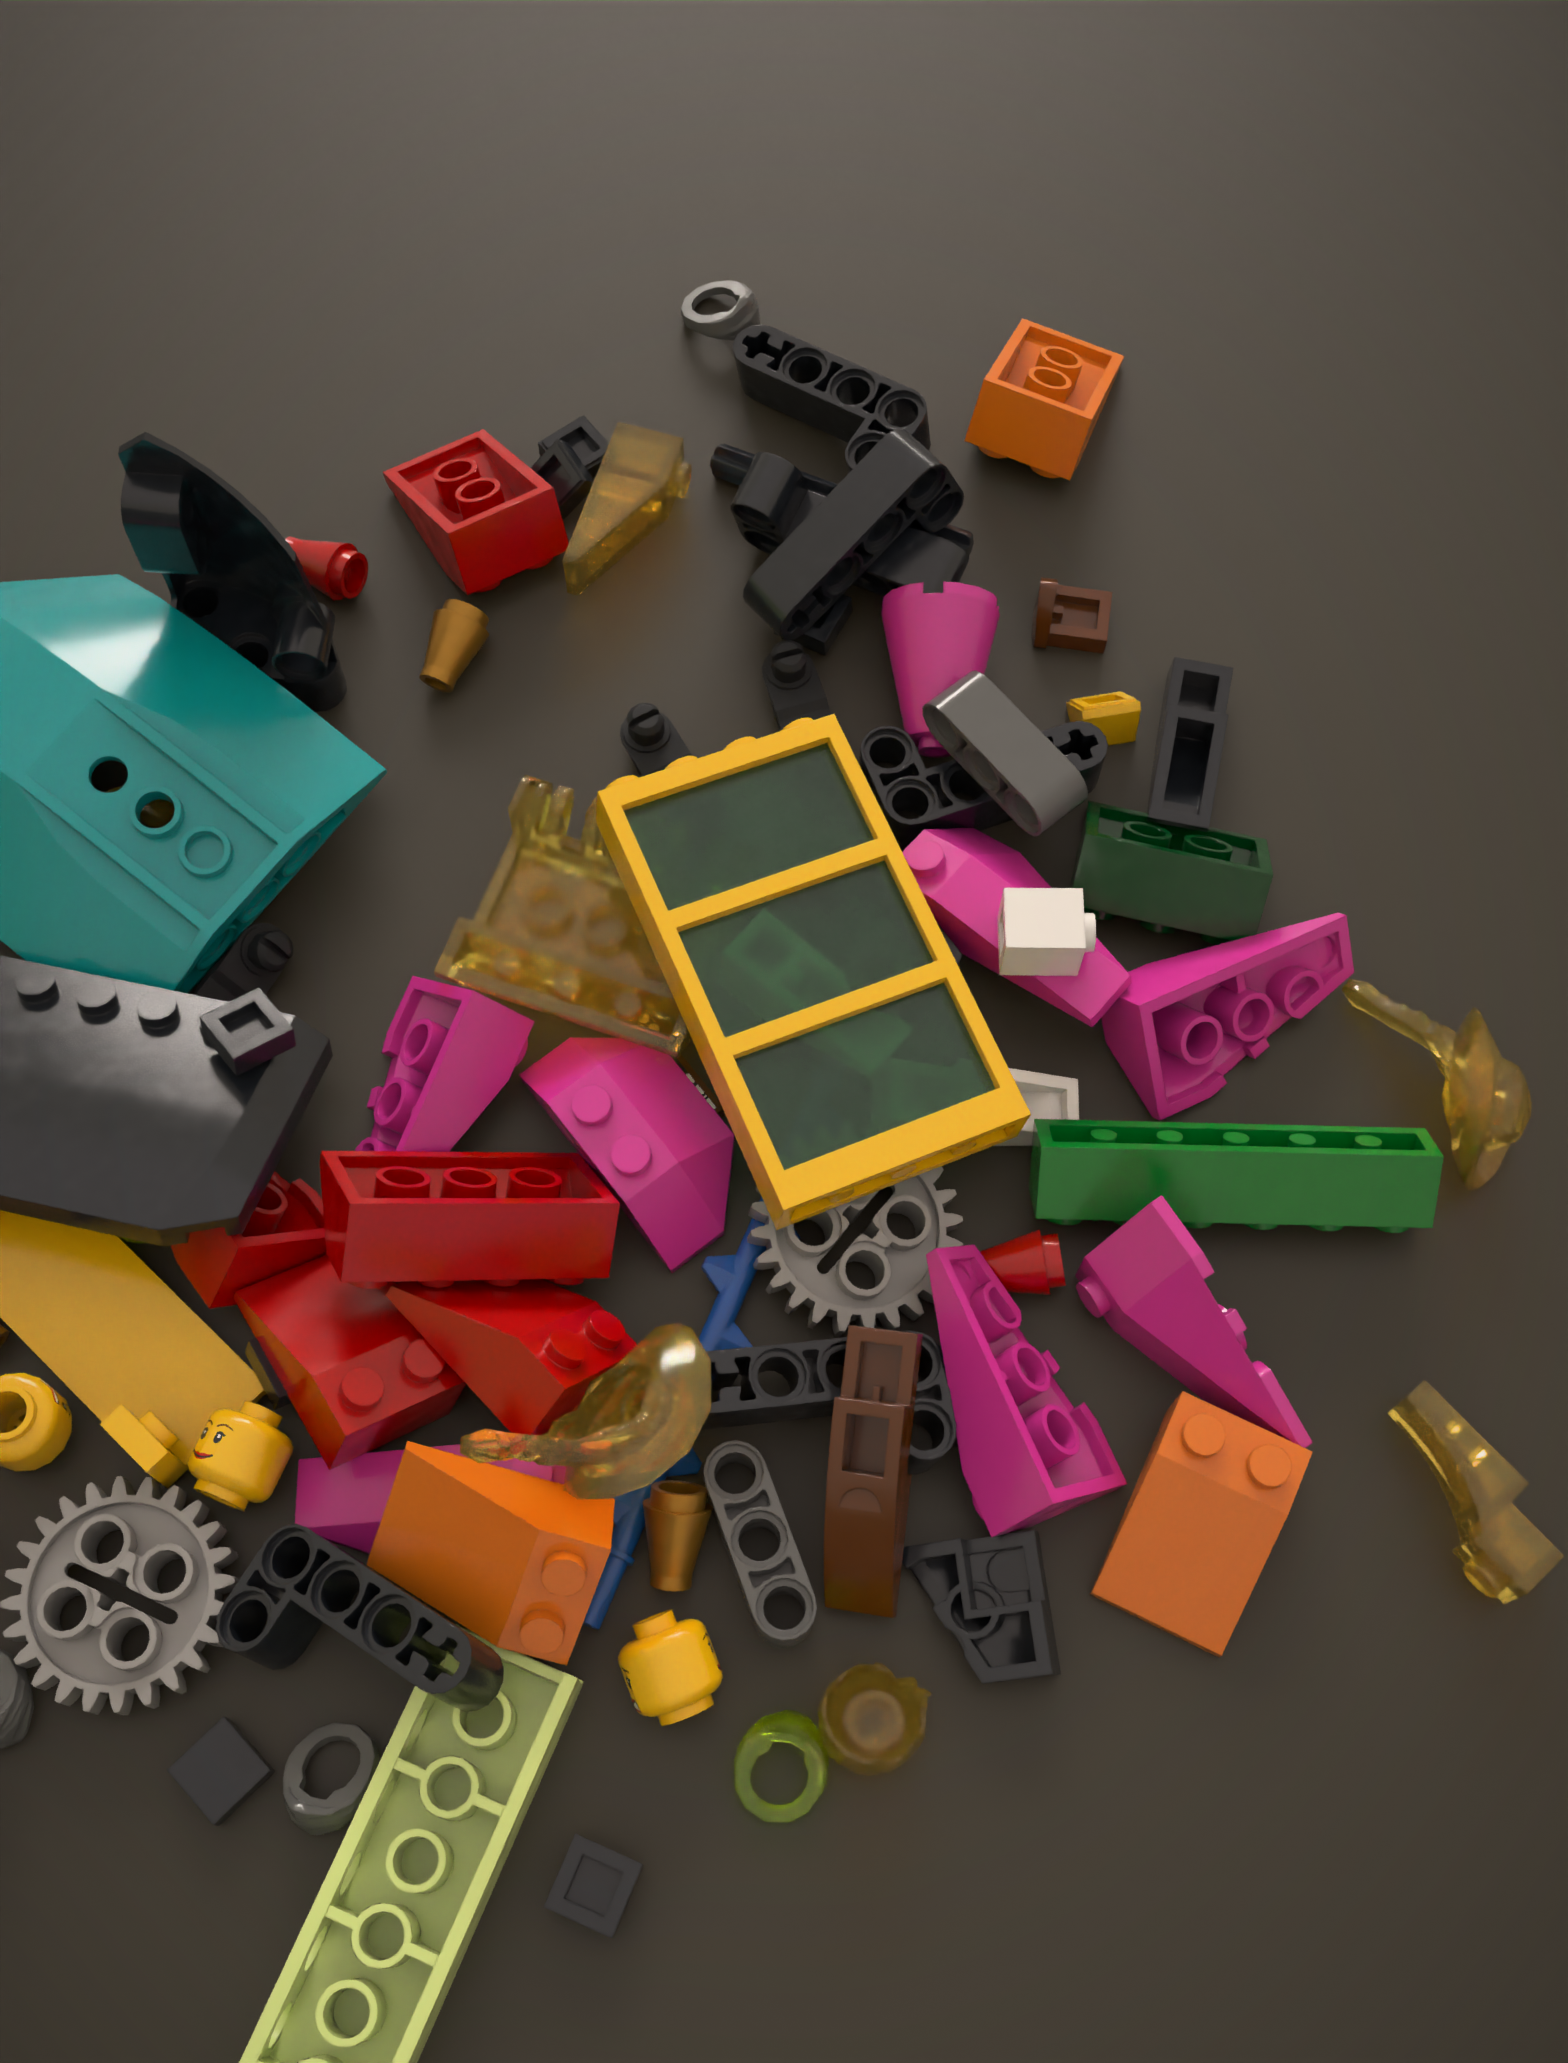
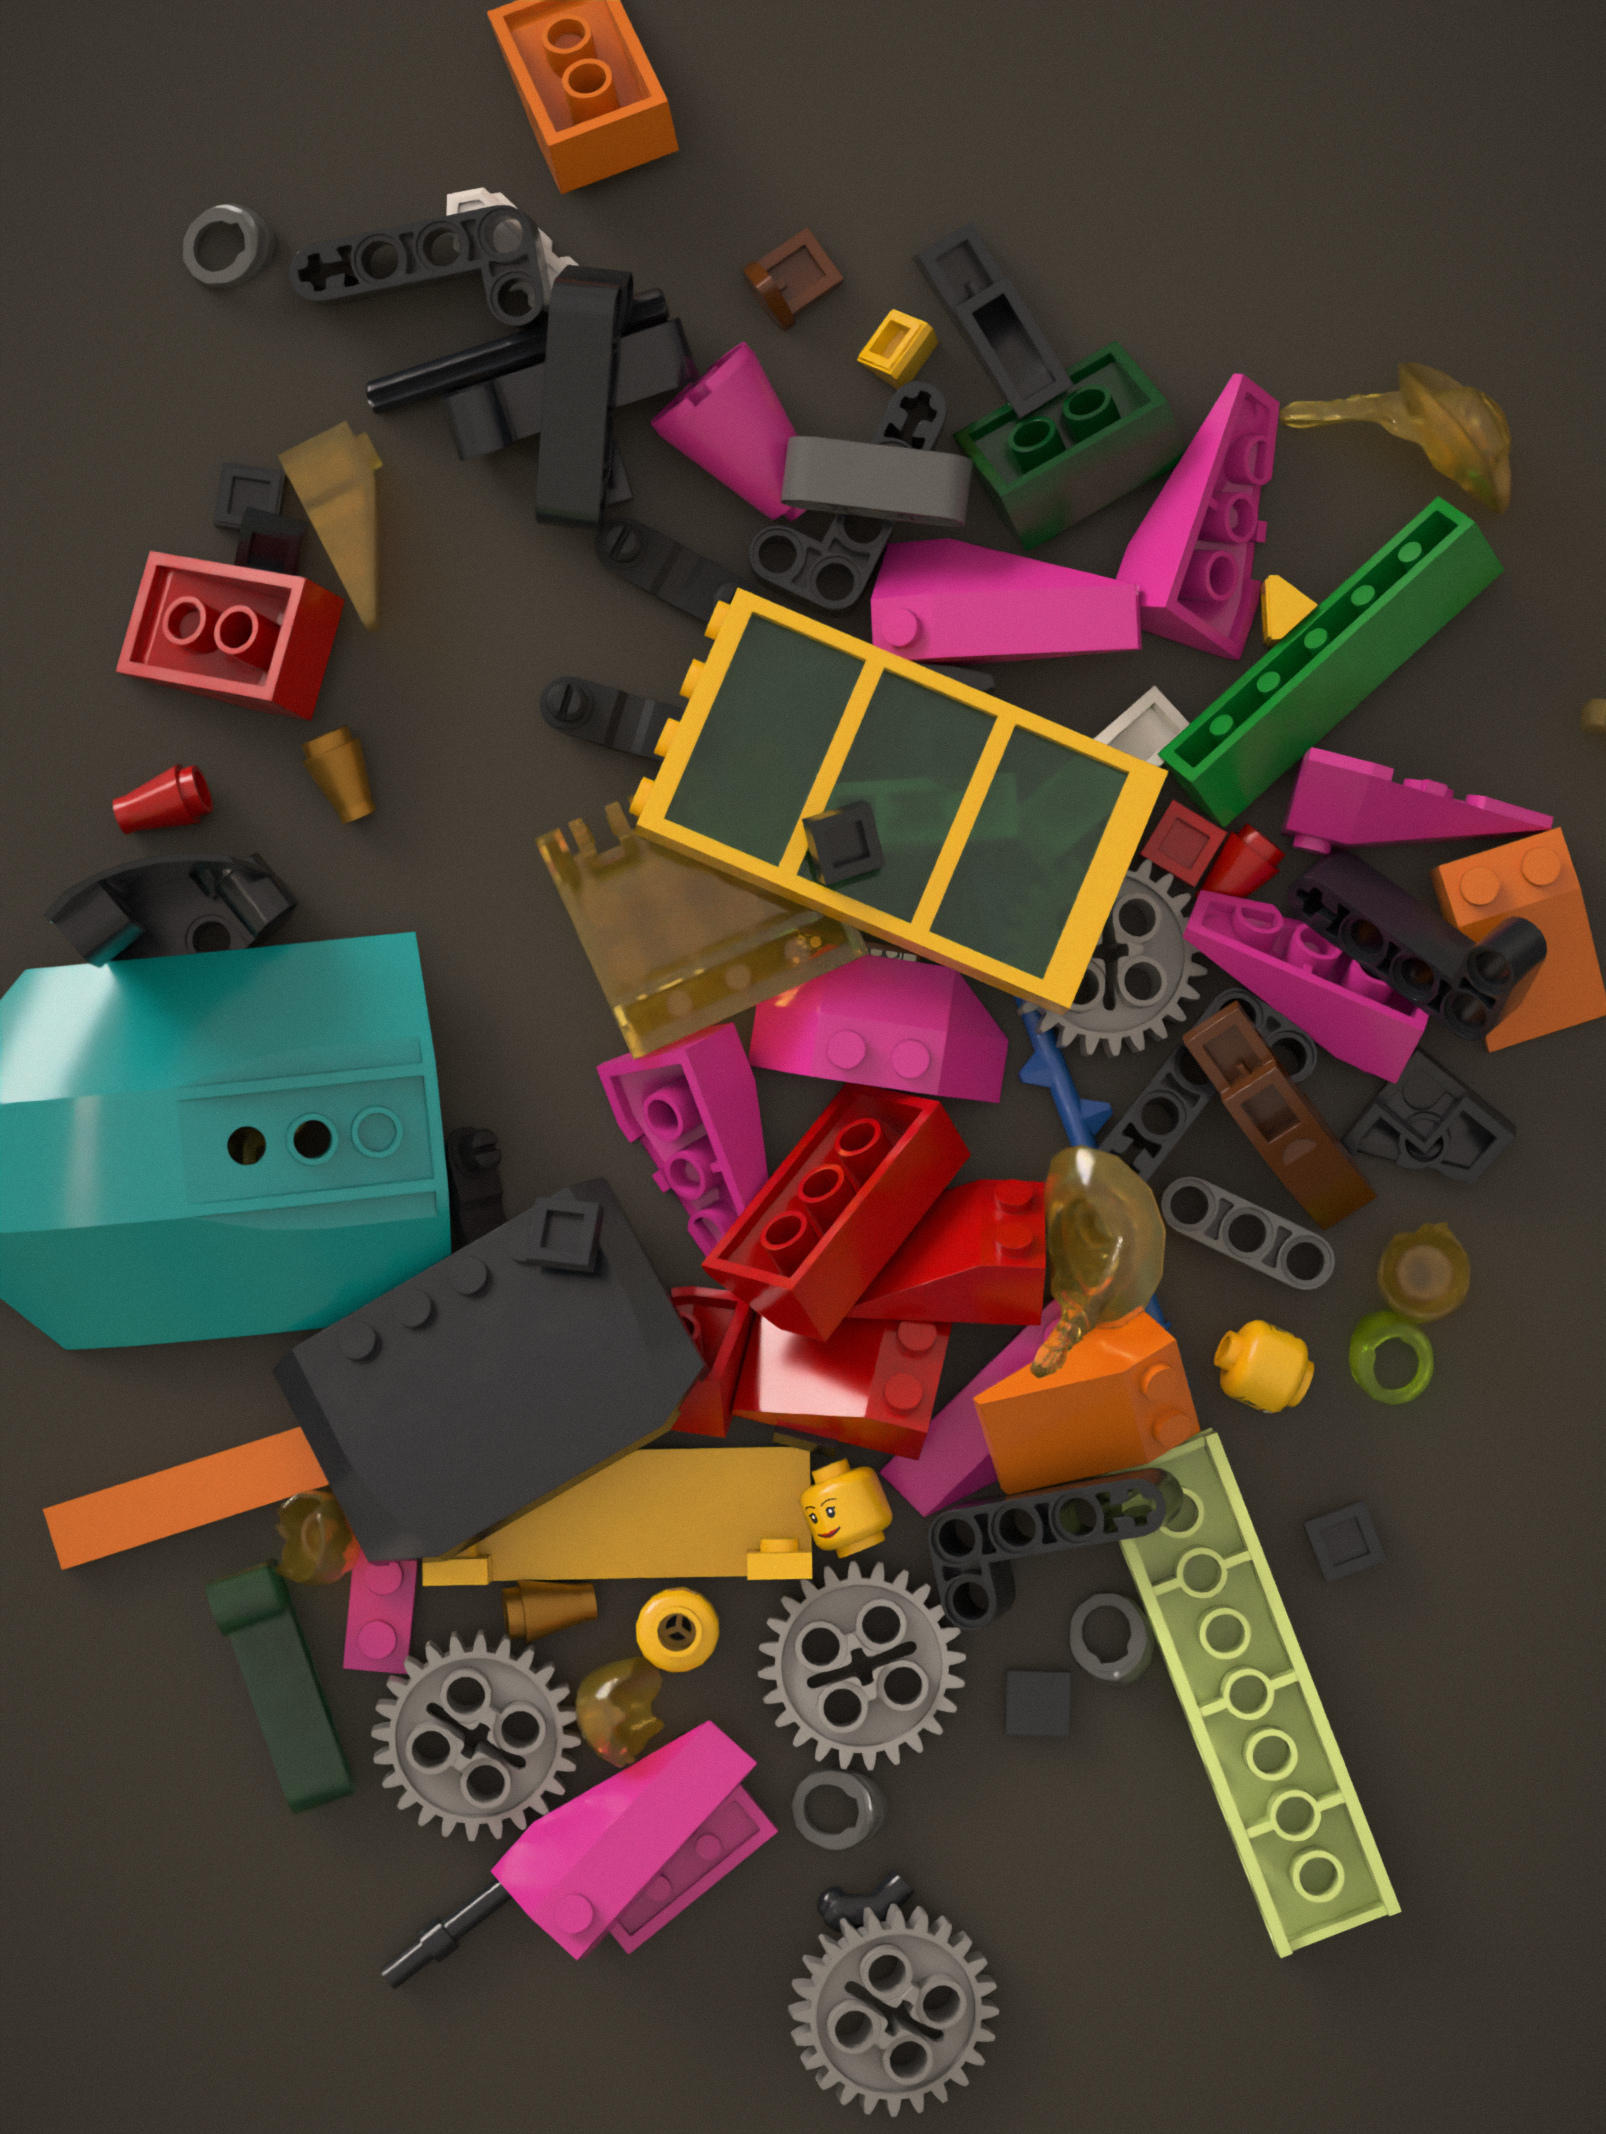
camera: 40 degrees left, 20 degrees up
(675, 1530) = (1188, 1282): pearl gold cone -> none
(732, 929) = (843, 842): none -> black plate
(992, 1207) = (1183, 844): none -> red plate
(1043, 931) = (1050, 617): white brick -> none
(1116, 1487) = (1414, 949): none -> black beam
(1230, 1102) = (1281, 609): none -> yellow slope

